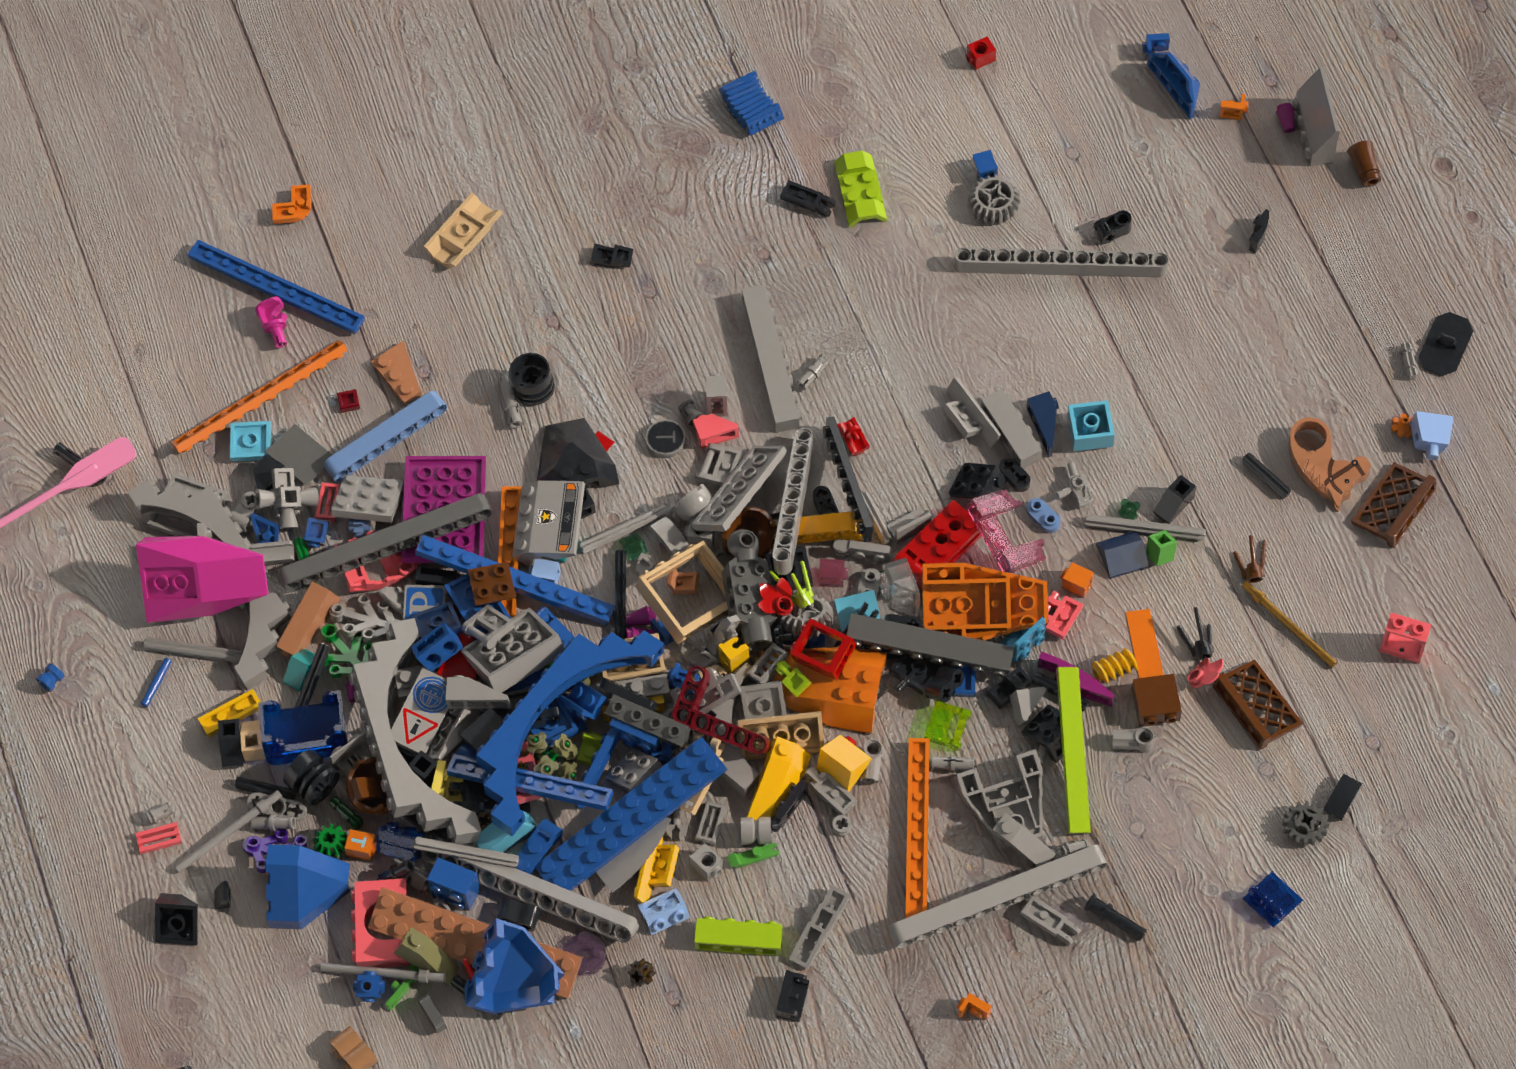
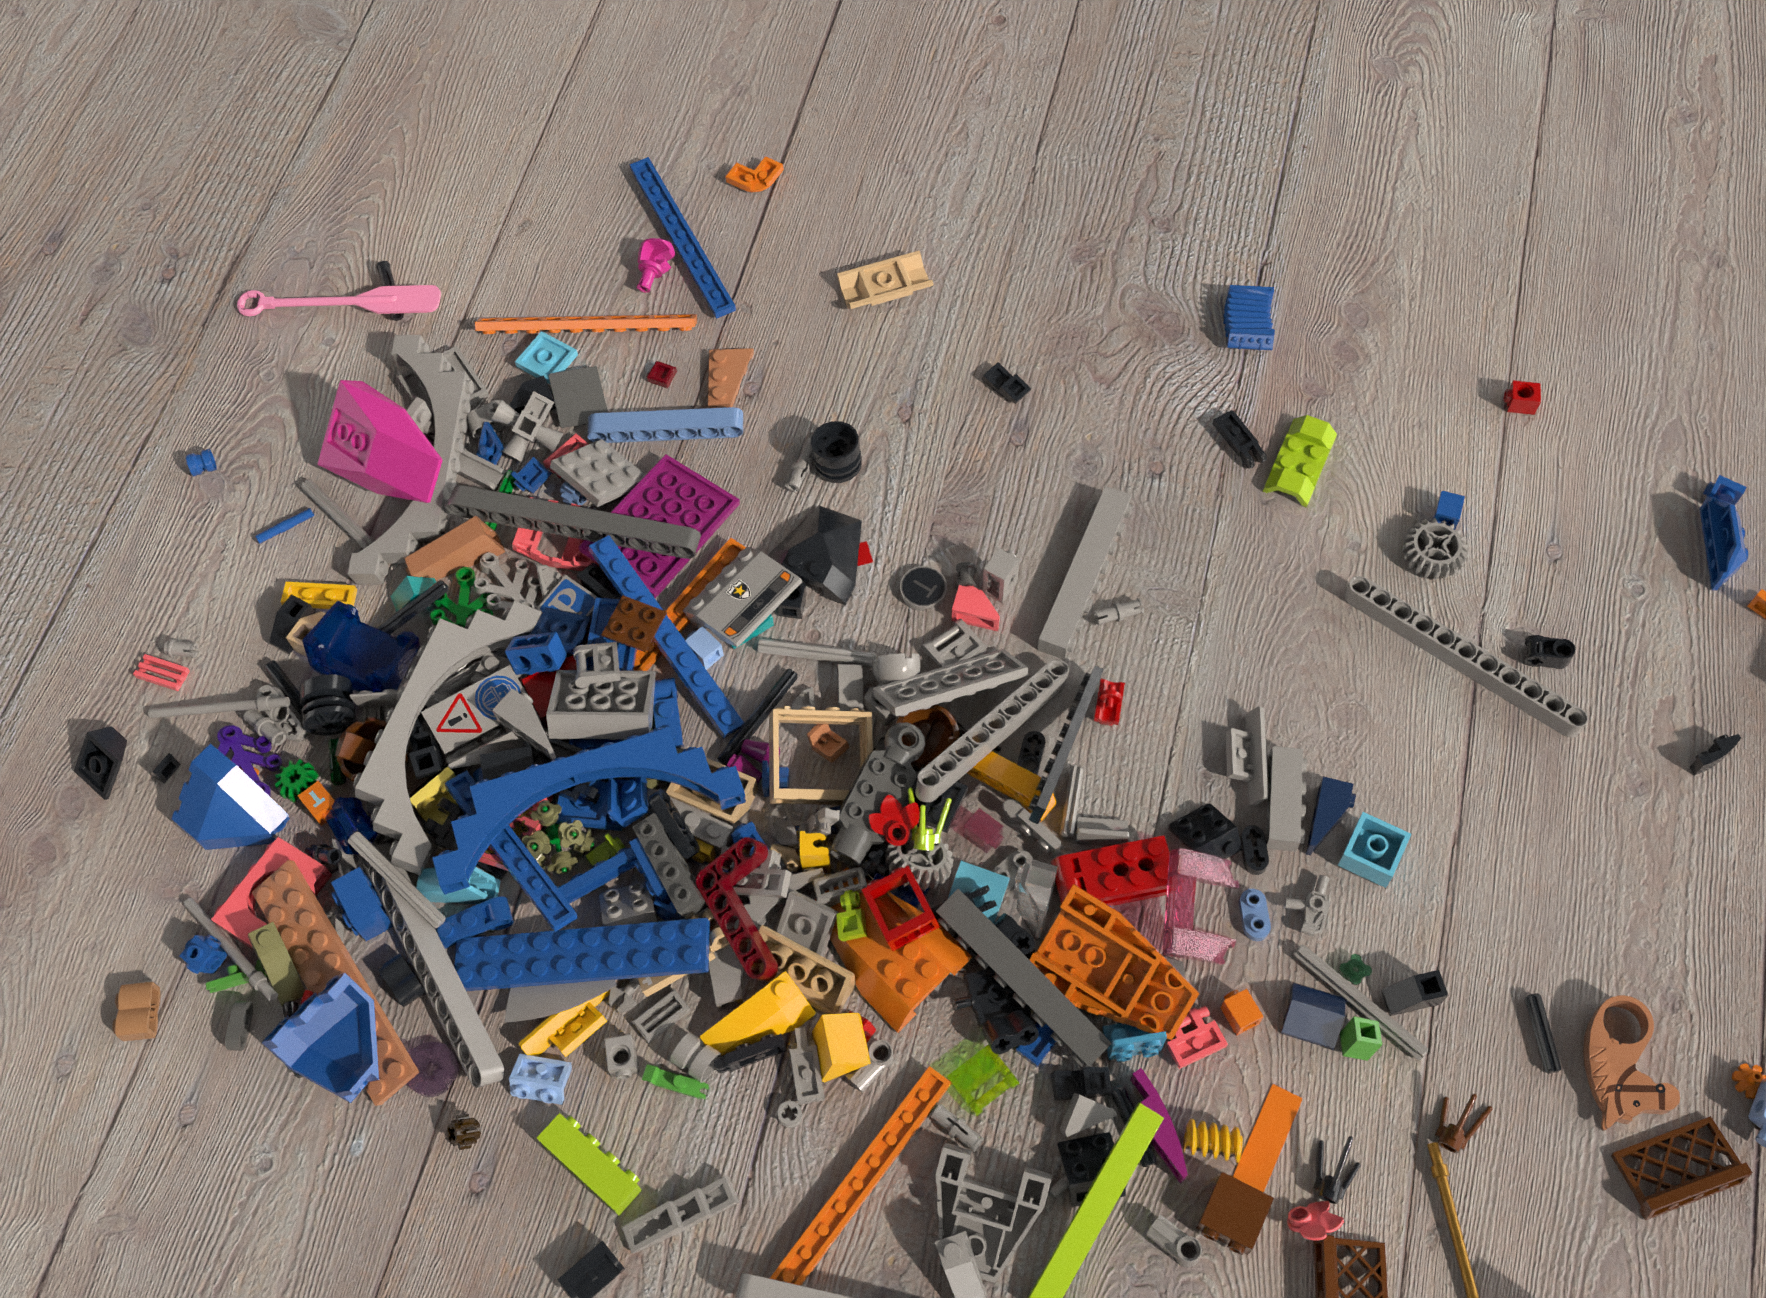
camera: 35 degrees right, 0 degrees up
(633, 545) = (810, 675): clear green slope -> none

